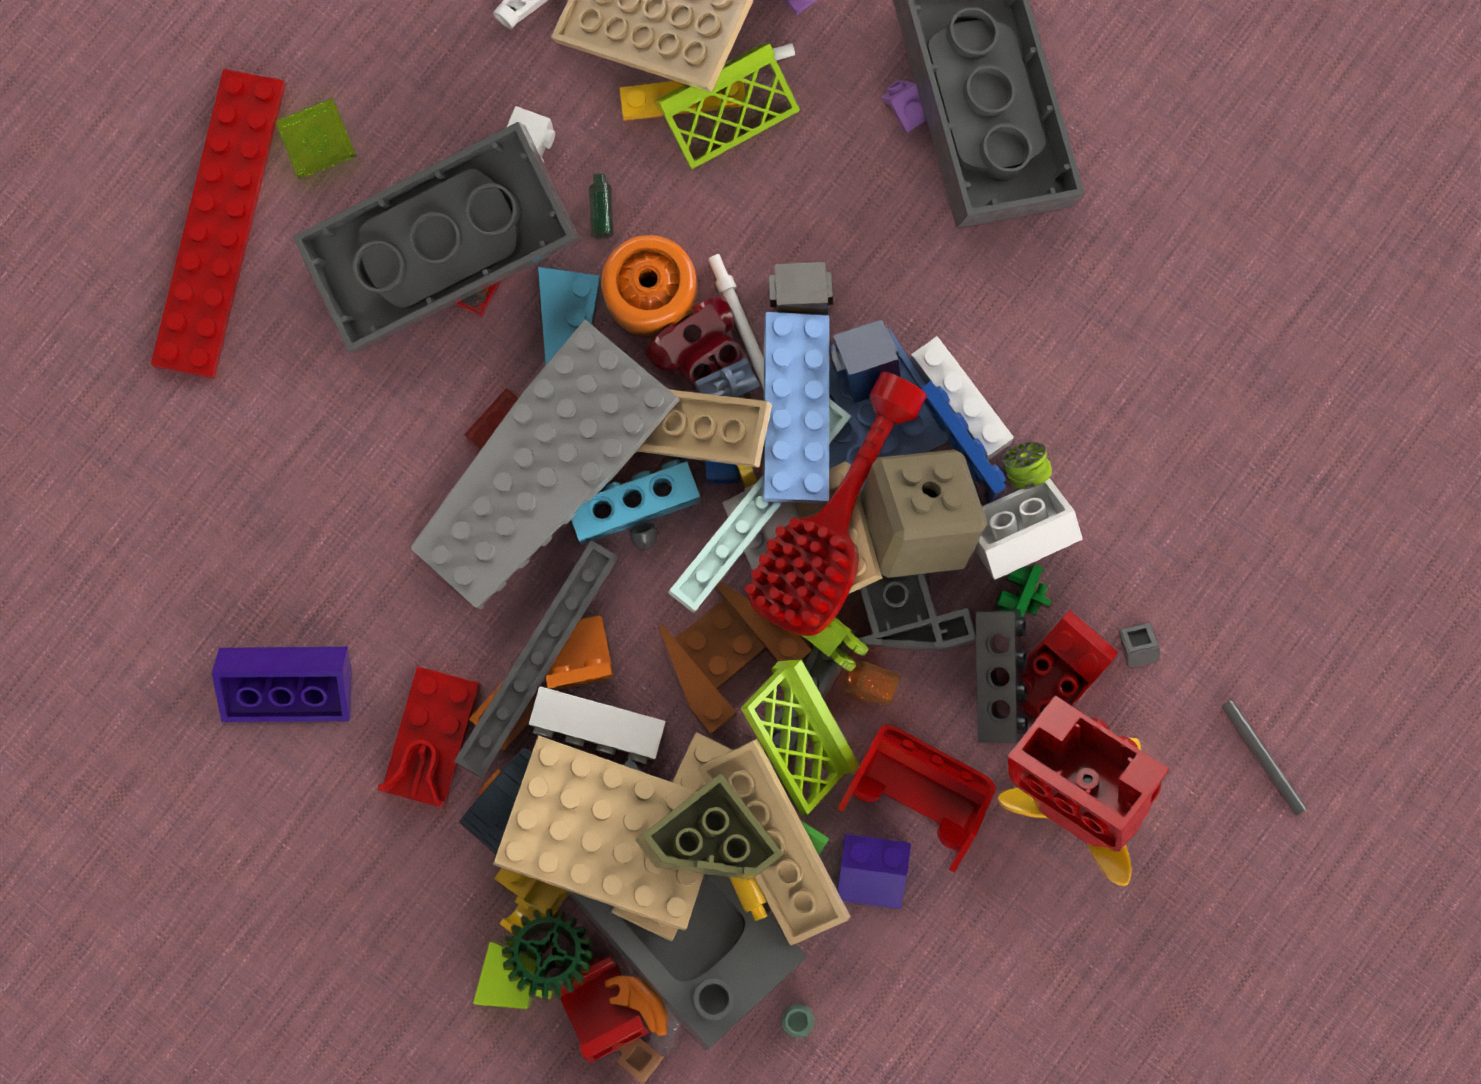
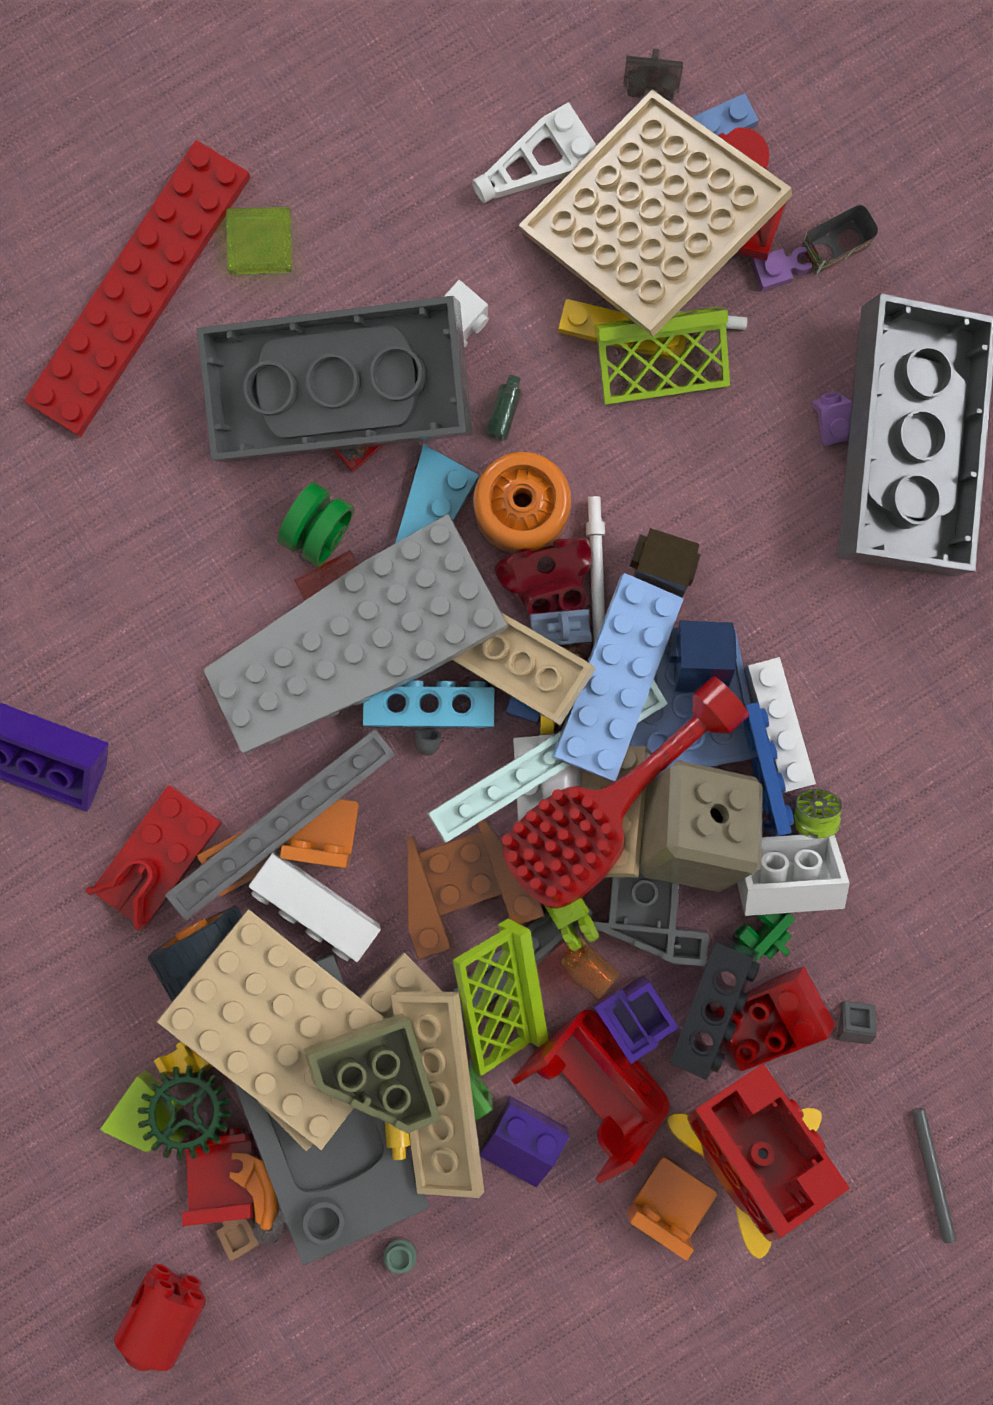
camera: 15 degrees right, 5 degrees up
(466, 374) = (315, 524): none -> green wheel
(932, 712) = (636, 1018): none -> dark purple plate
(1032, 874) = (671, 1206): none -> orange bracket

